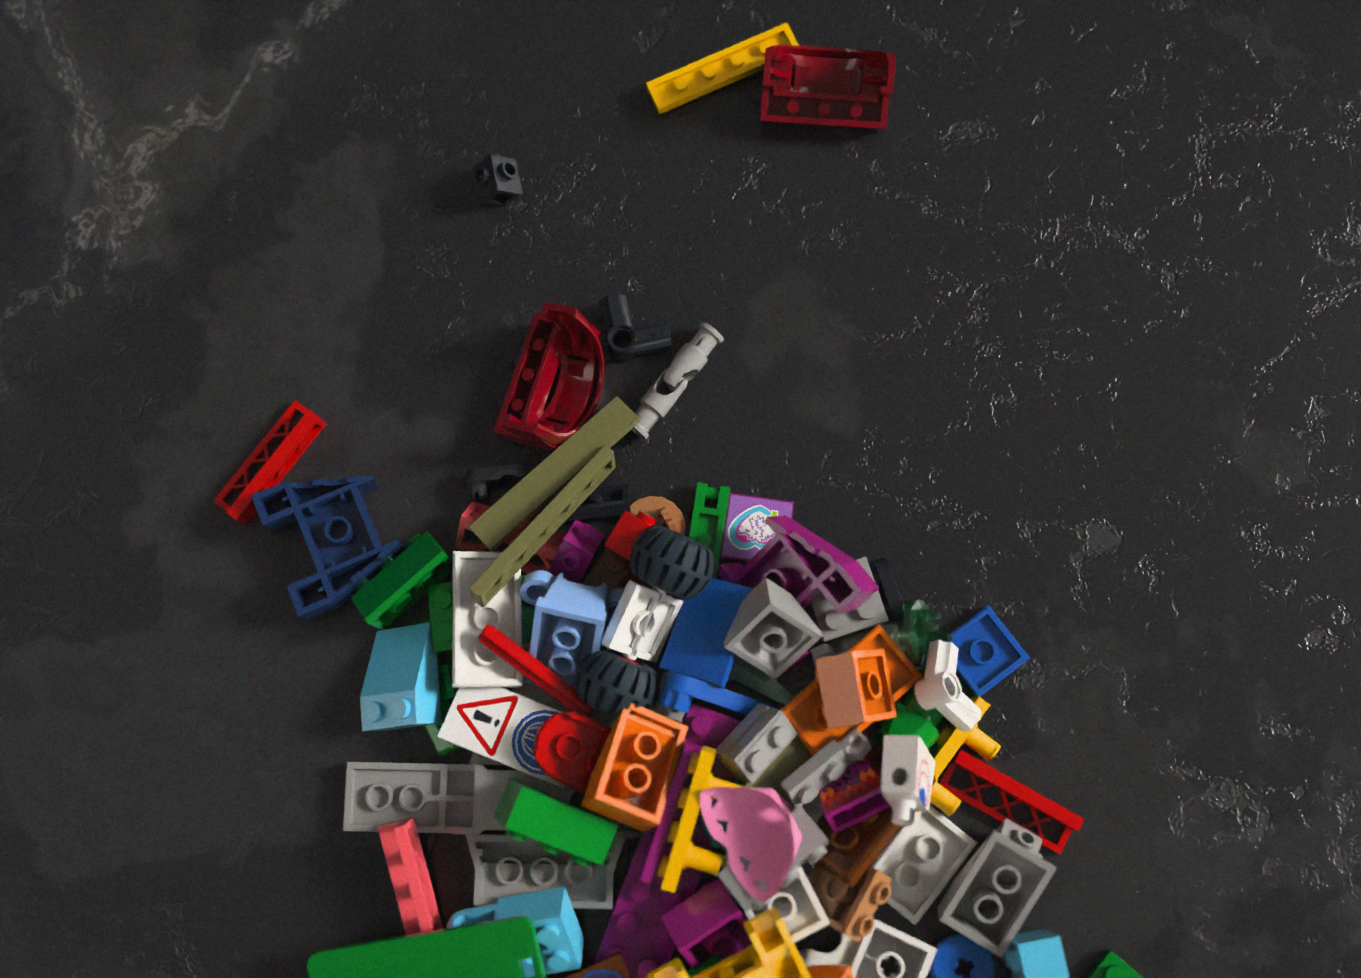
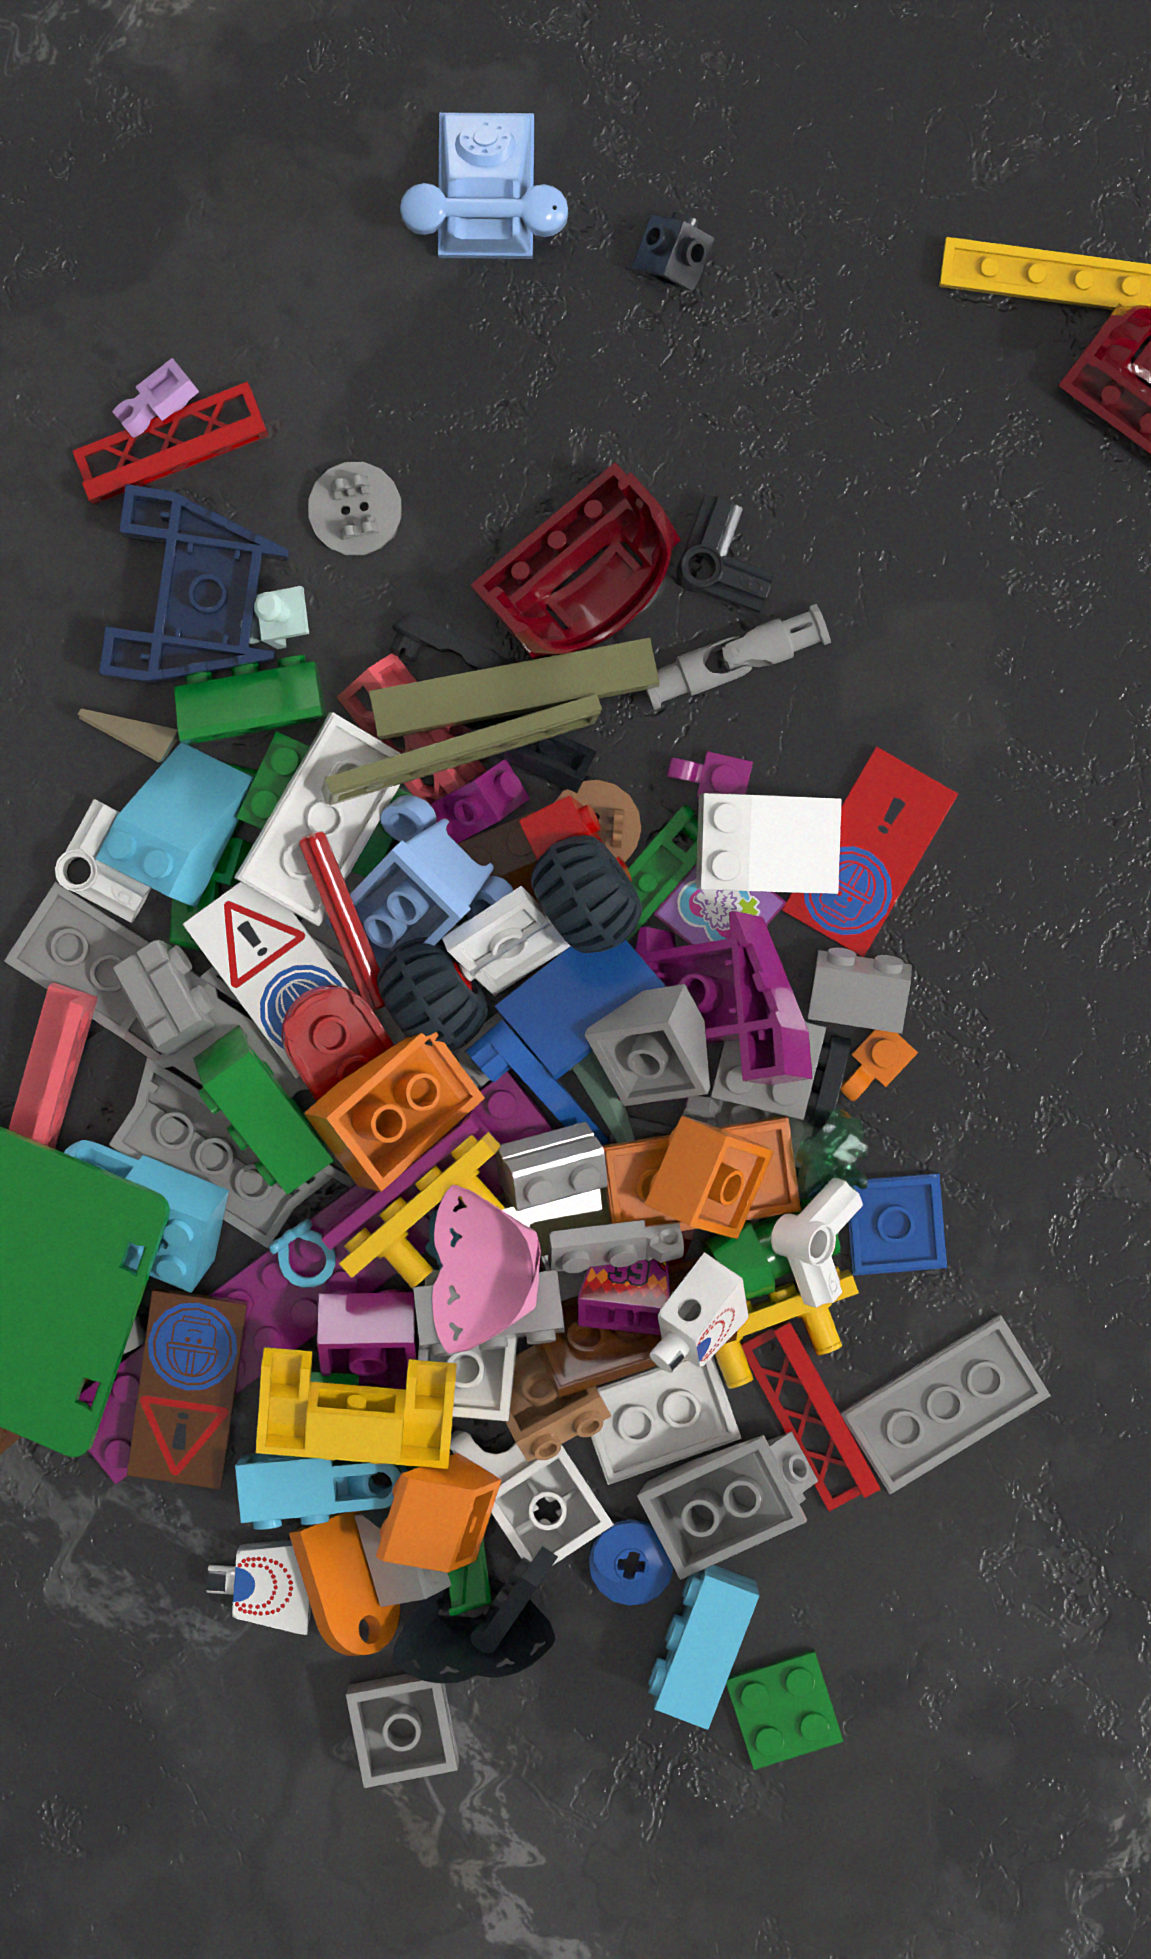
camera: 25 degrees right, 10 degrees up
(247, 436) = (160, 395): none -> lavender plate
(351, 640) = (145, 737): none -> dark tan slope
(370, 212) = (485, 190): none -> light blue piece
(378, 743) = (105, 885): none -> white piece
(390, 517) = (279, 616): none -> light aqua piece
(410, 443) = (360, 530): none -> light grey plate
(452, 789) = (165, 997): none -> light grey brick
(620, 902) = (281, 1246): none -> medium azure piece
(708, 455) = (716, 776): none -> magenta plate
(760, 472) = (768, 843): none -> white slope
(823, 444) = (882, 838): none -> red tile
(871, 524) = (860, 990): none -> light grey brick
(908, 559) = (880, 1058): none -> orange plate
(1084, 742) = (945, 1404): none -> light grey tile

